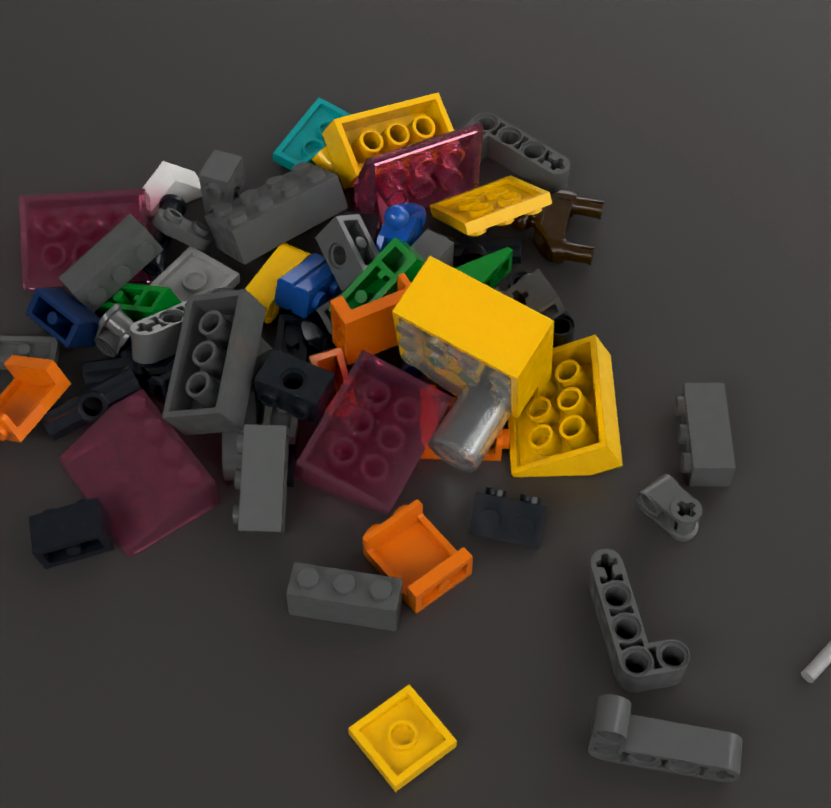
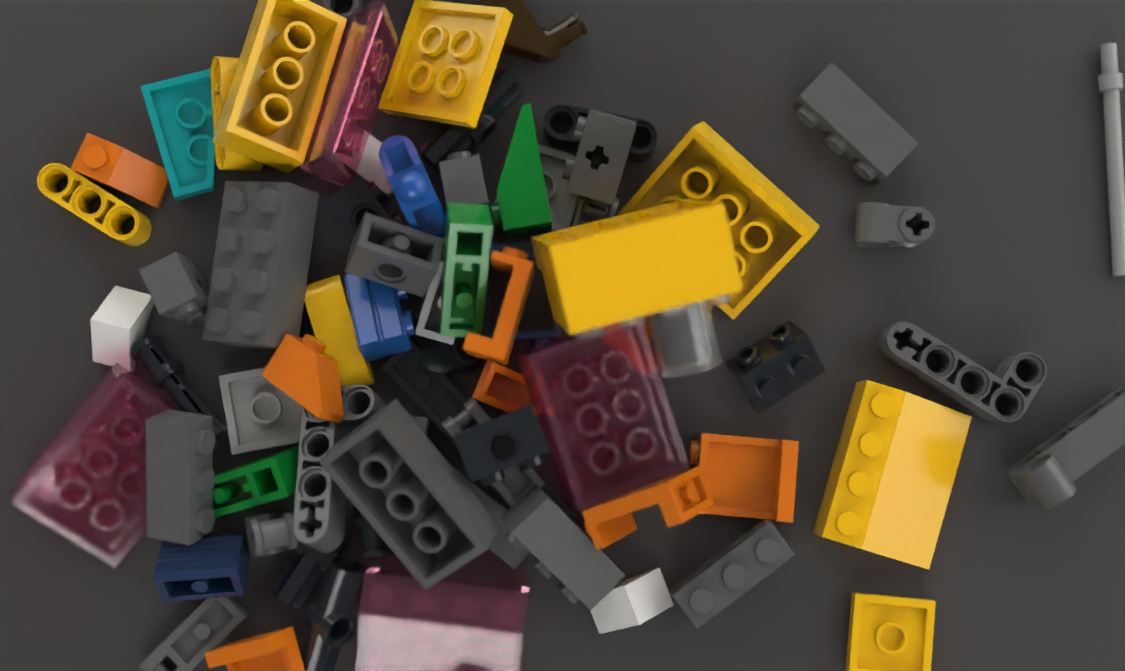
camera: 50 degrees left, 30 degrees up
(176, 226) = (196, 372): dark grey plate -> none
(230, 123) = (81, 192): none -> yellow beam
(236, 266) = (307, 376): none -> orange slope
(261, 122) = (121, 170): none -> orange slope
(265, 558) = (632, 602): none -> white slope
(337, 489) = (678, 495): none -> orange panel
(514, 643) = (892, 474): none -> yellow slope

